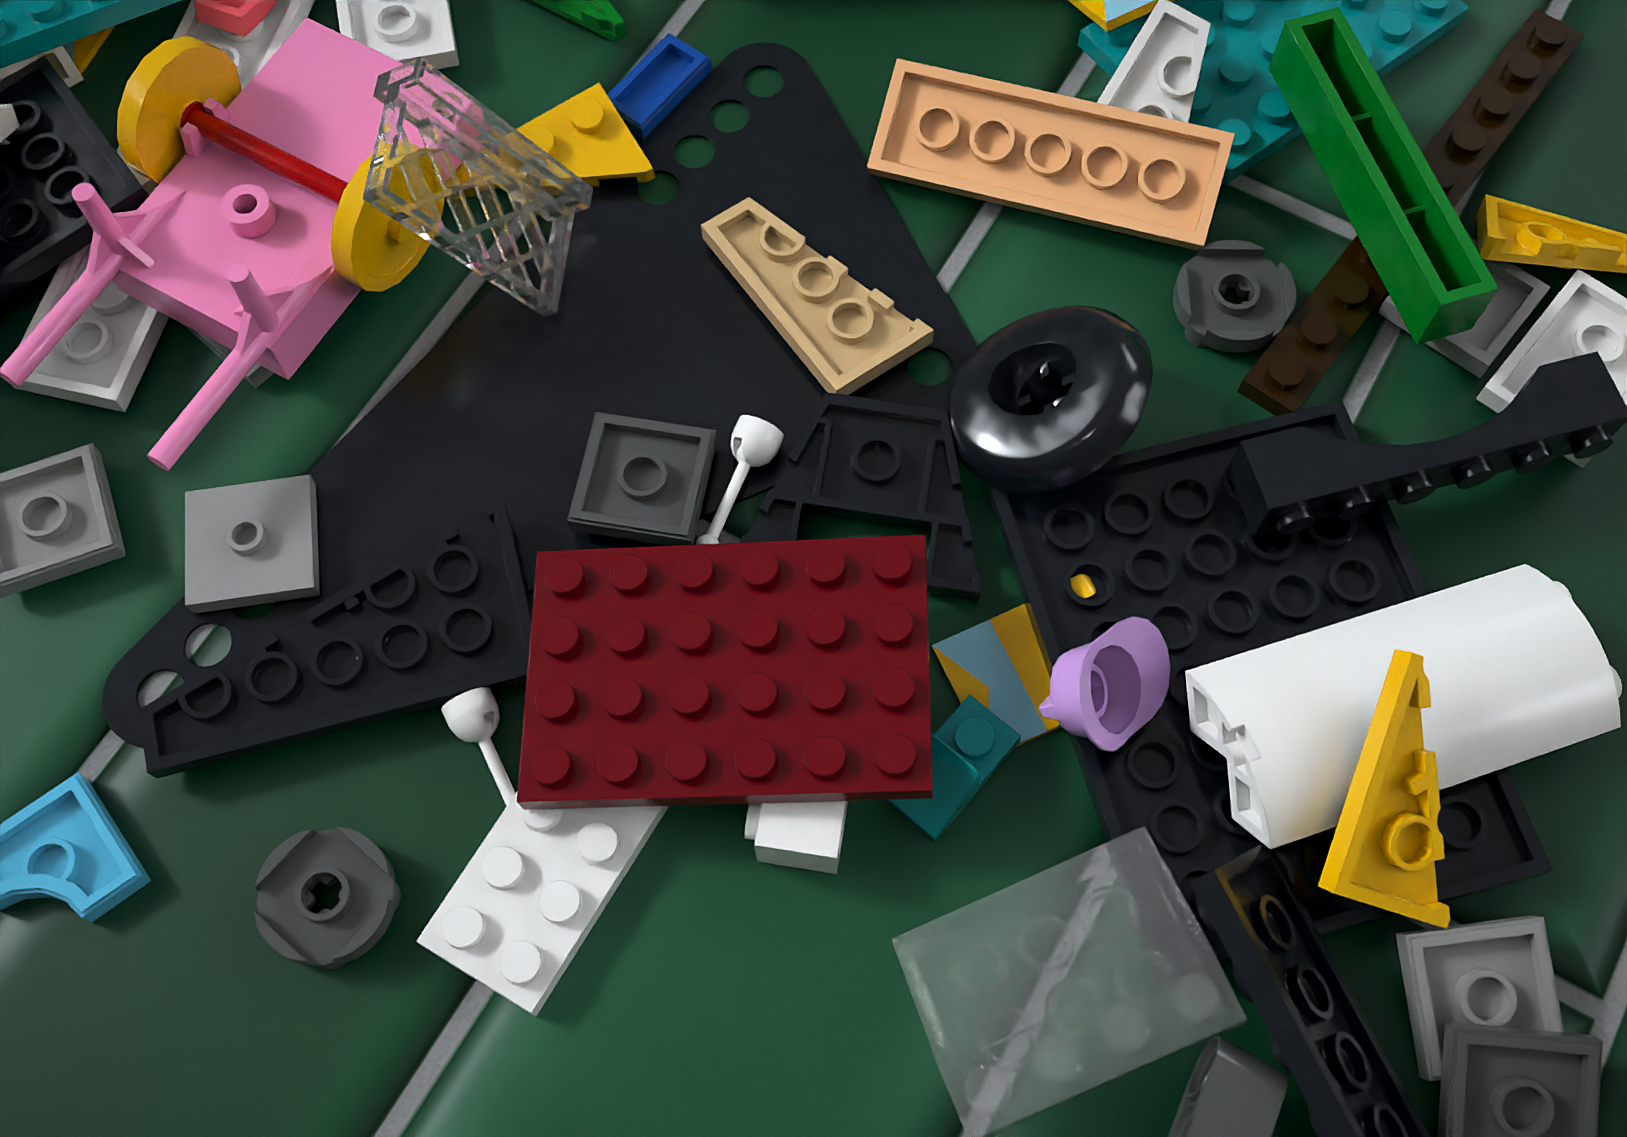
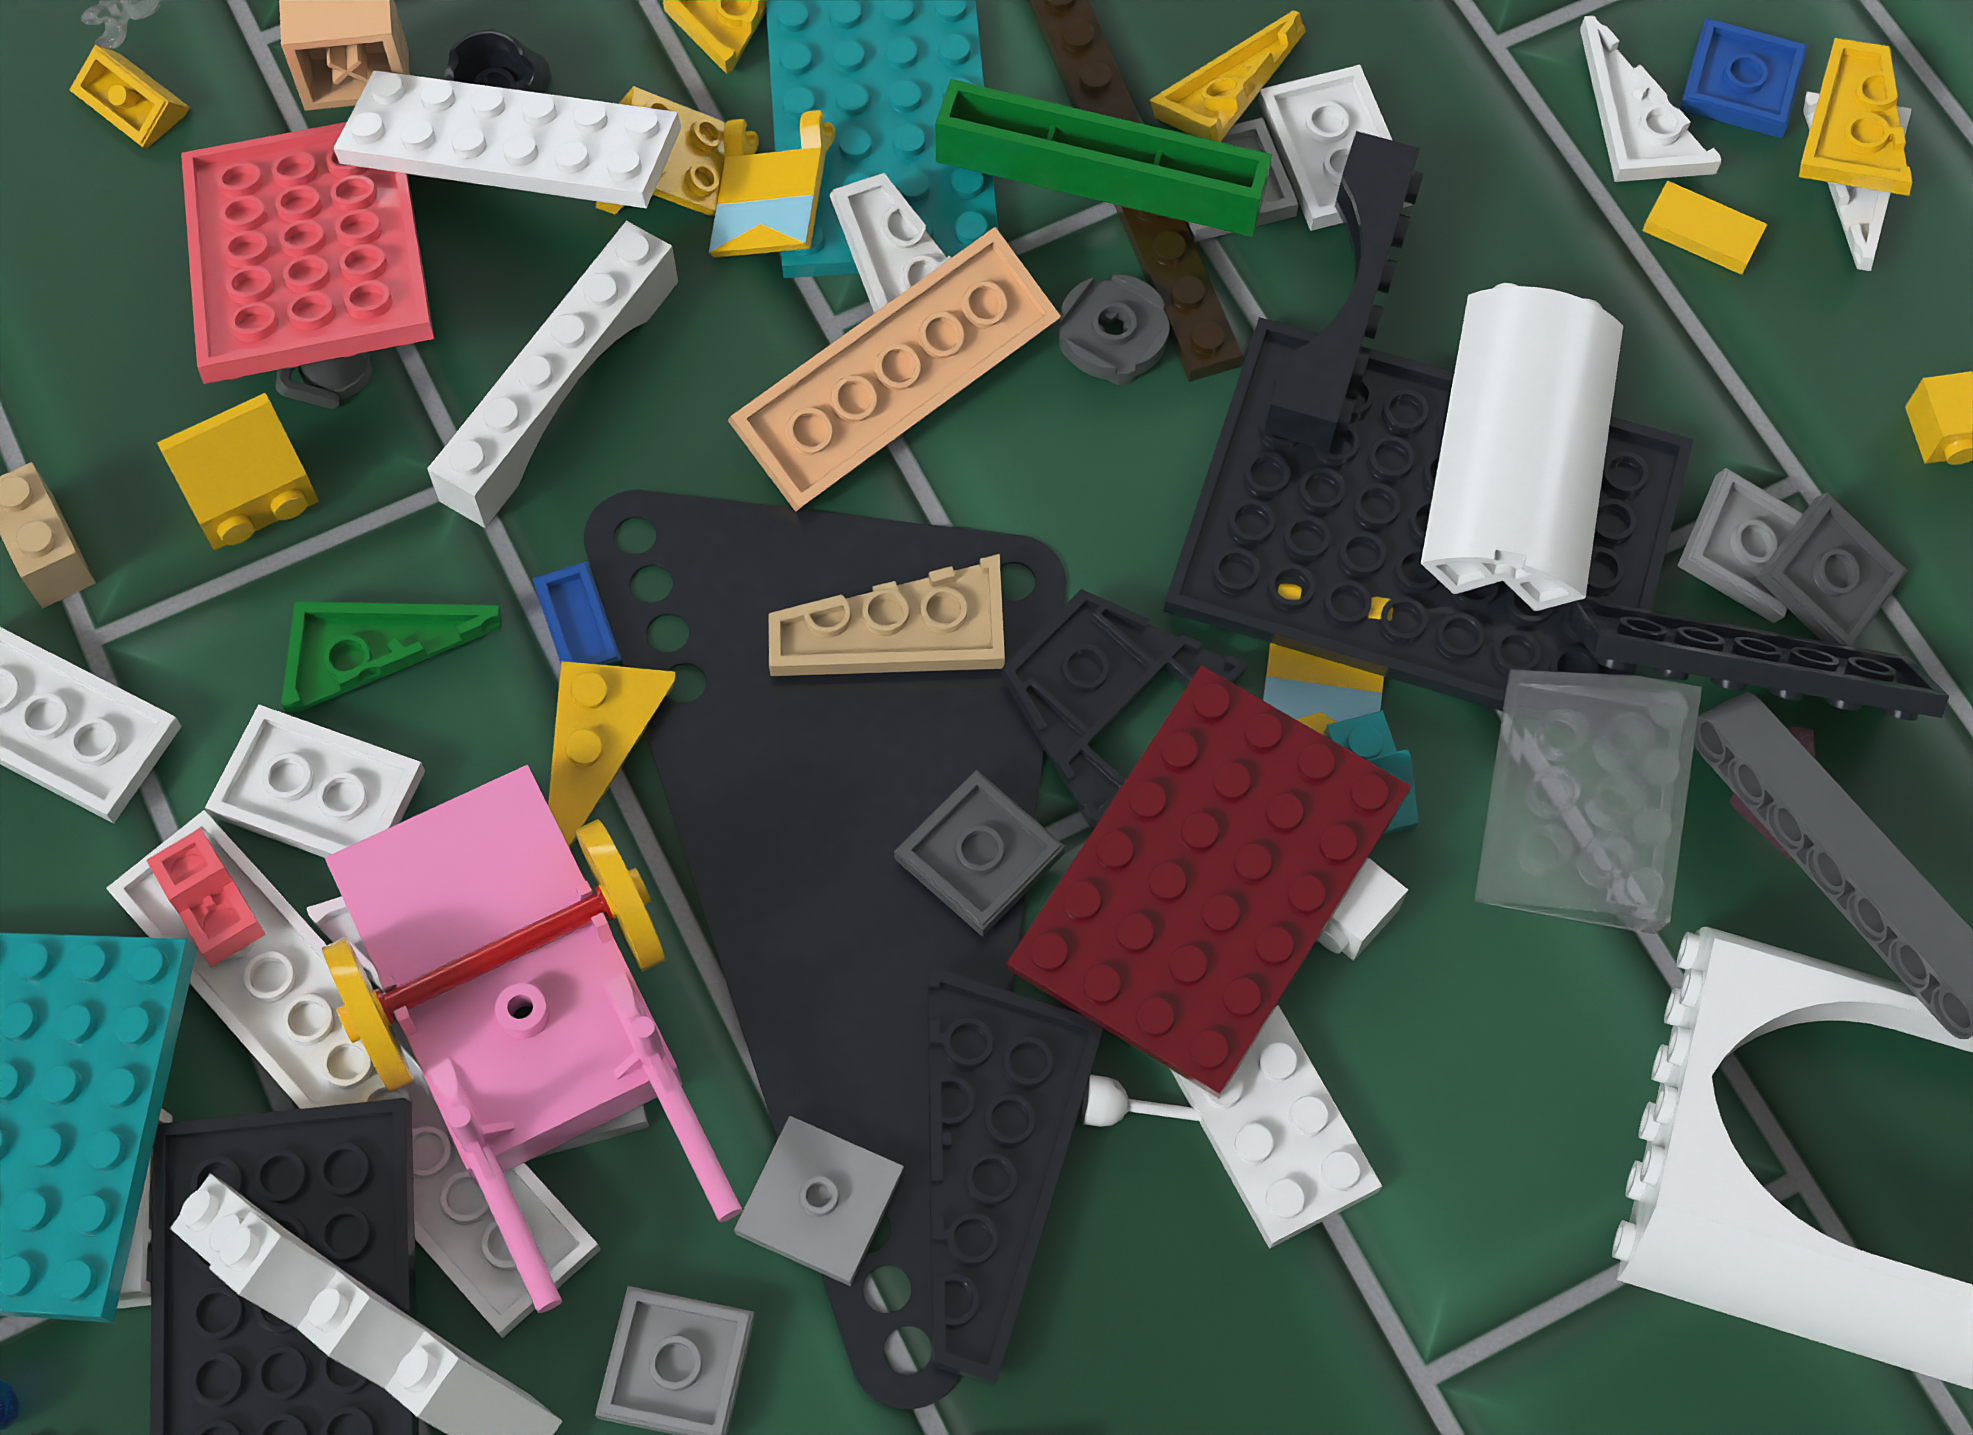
camera: 60 degrees left, 0 degrees up
(334, 935) = (1207, 1262): dark grey plate -> none
(491, 152) = (640, 807): clear fence -> none
(752, 444) = (1005, 752): white hinge -> none
(1049, 398) = (1127, 509): black hat -> none
(1110, 684) = (1394, 624): lavender piece -> none
(1390, 815) = (1606, 499): yellow wing -> none

